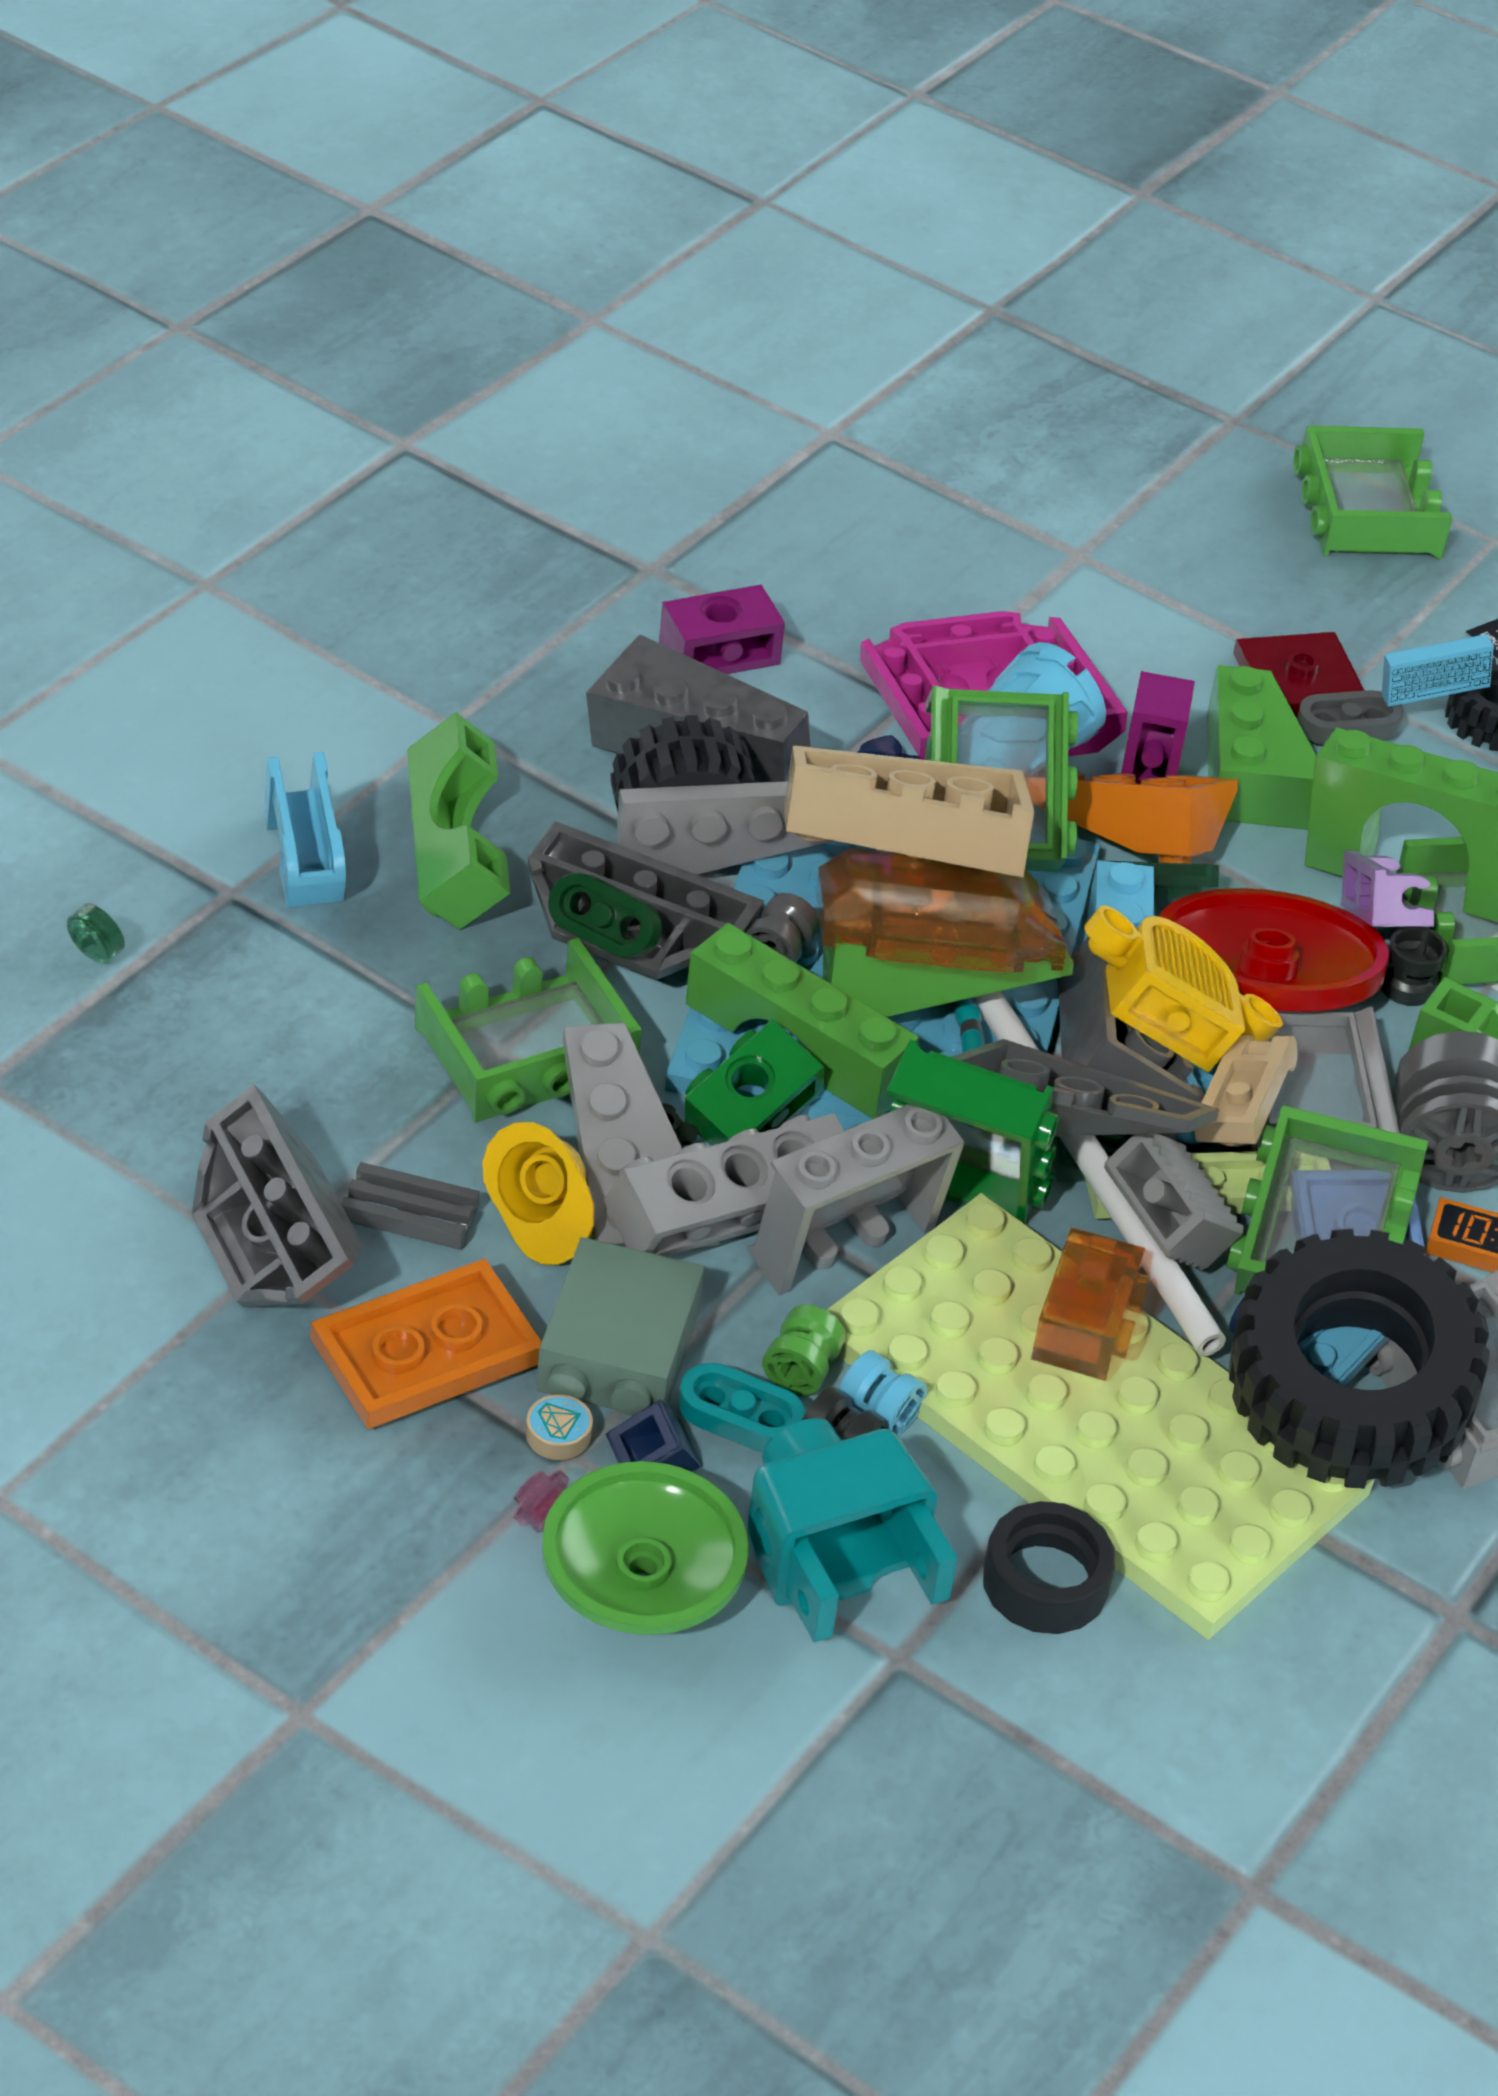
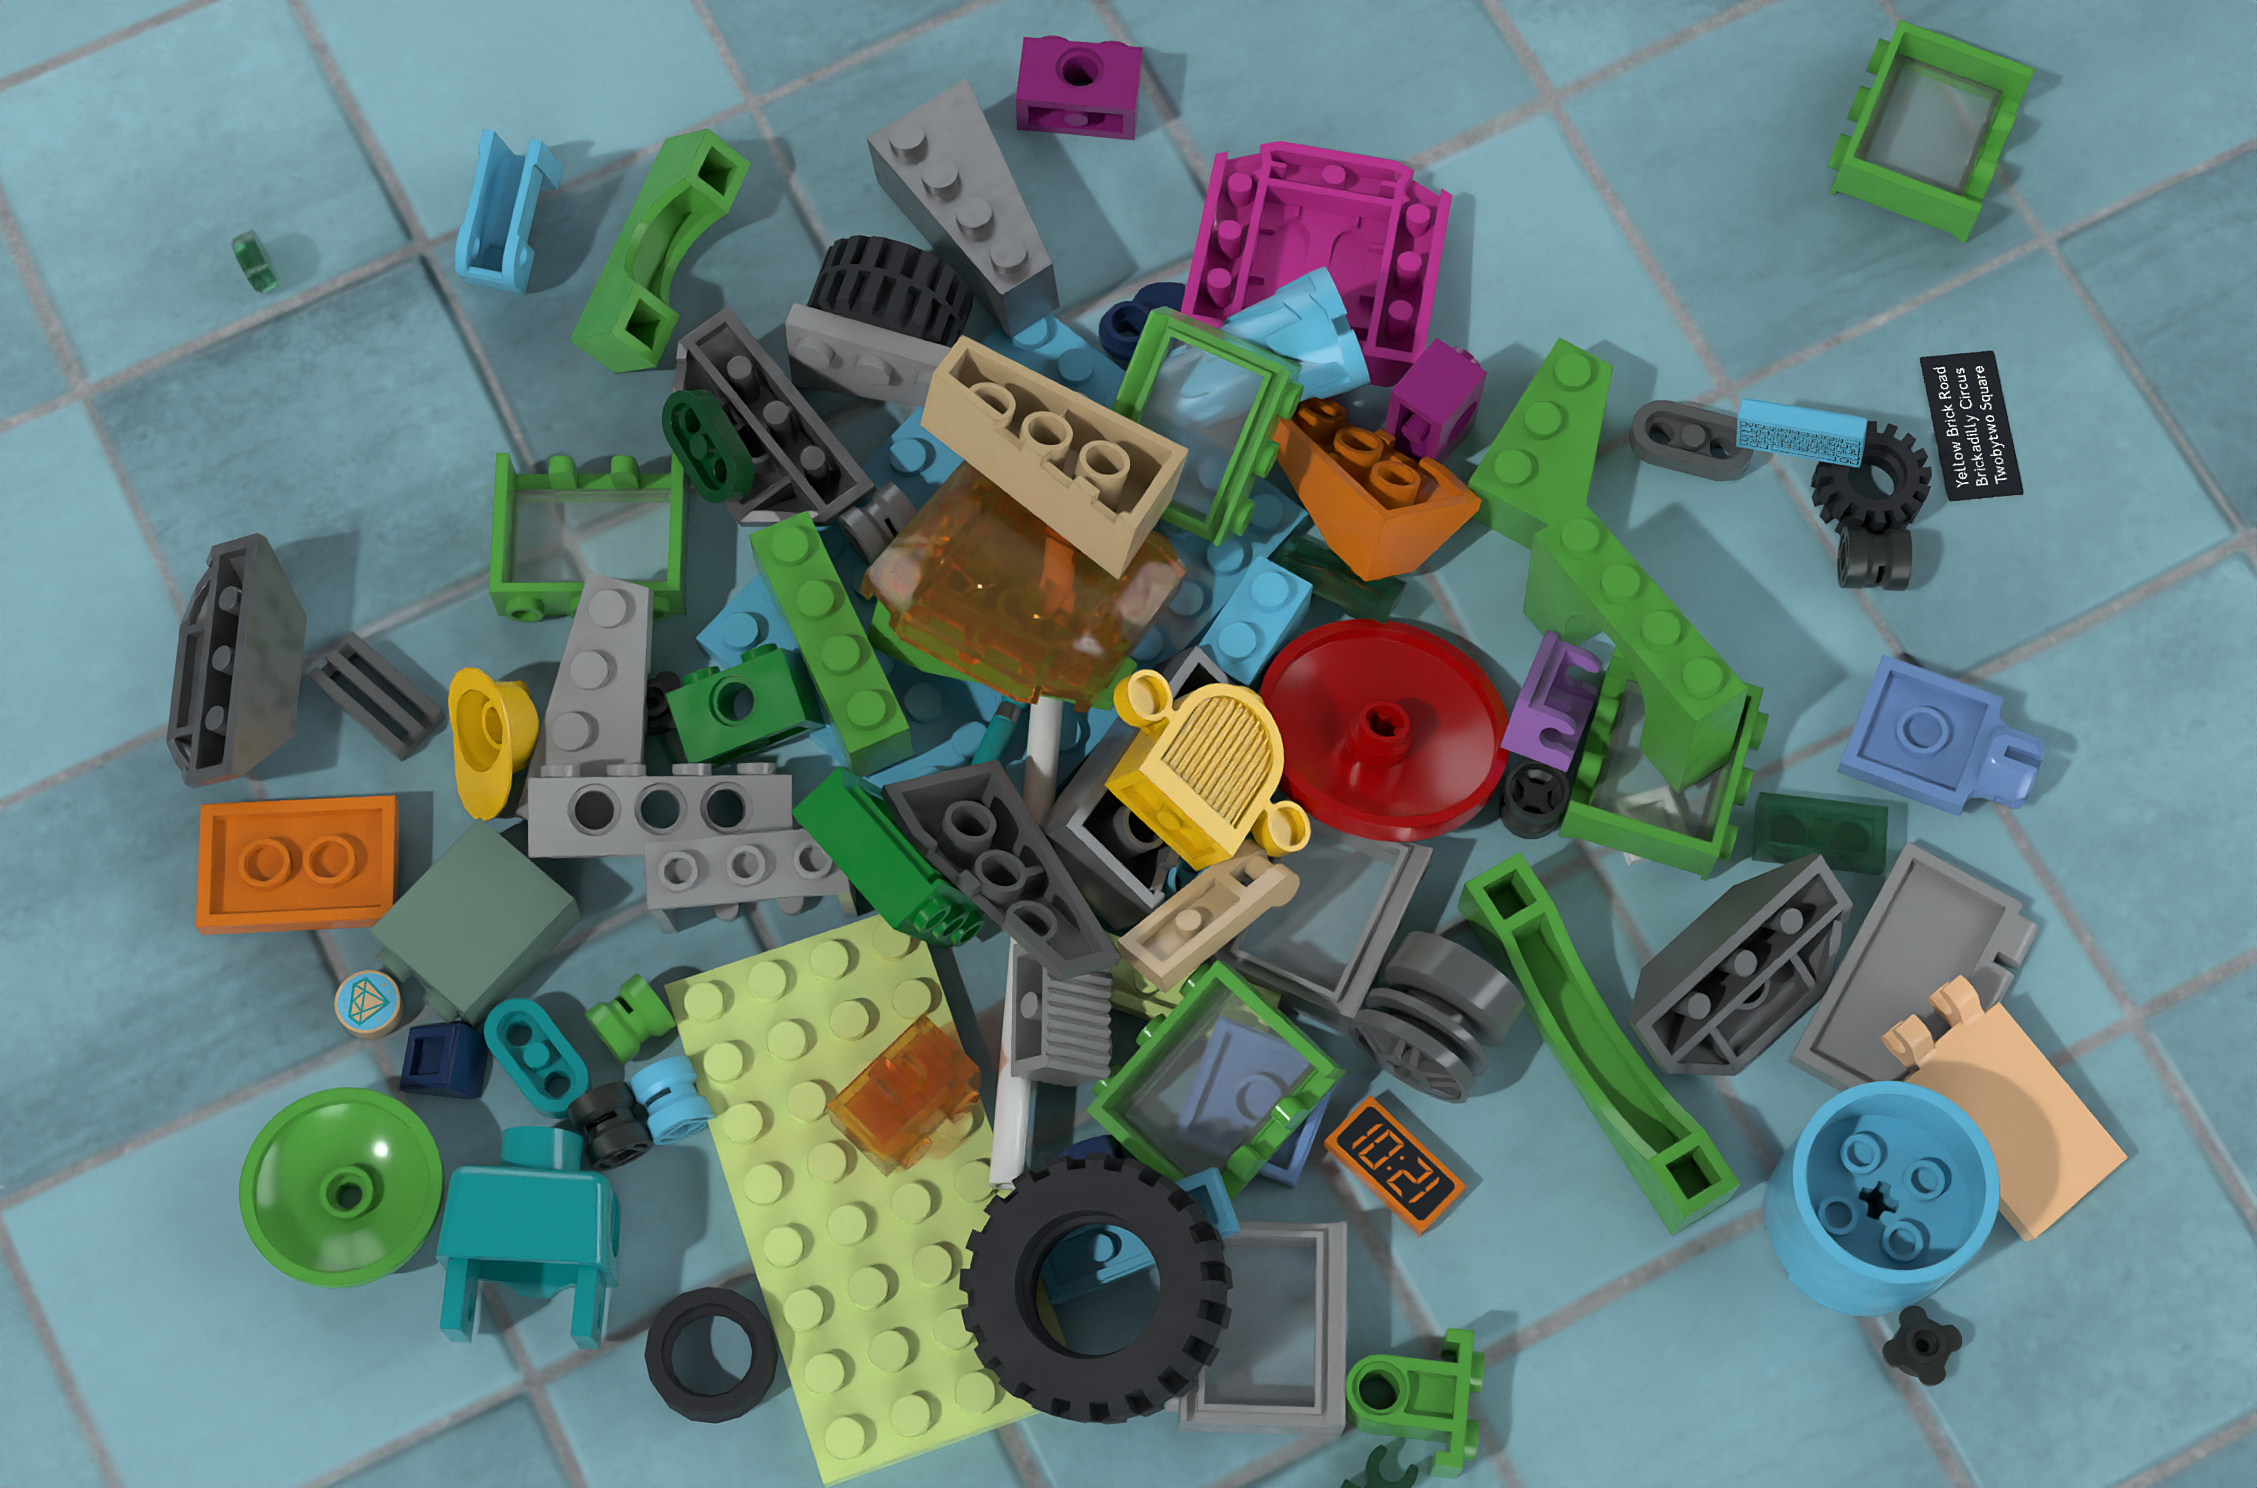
camera: 30 degrees right, 25 degrees up
(537, 1497) = (299, 1081): clear pink plate -> none
(1301, 664) = (1681, 353): dark red plate -> none

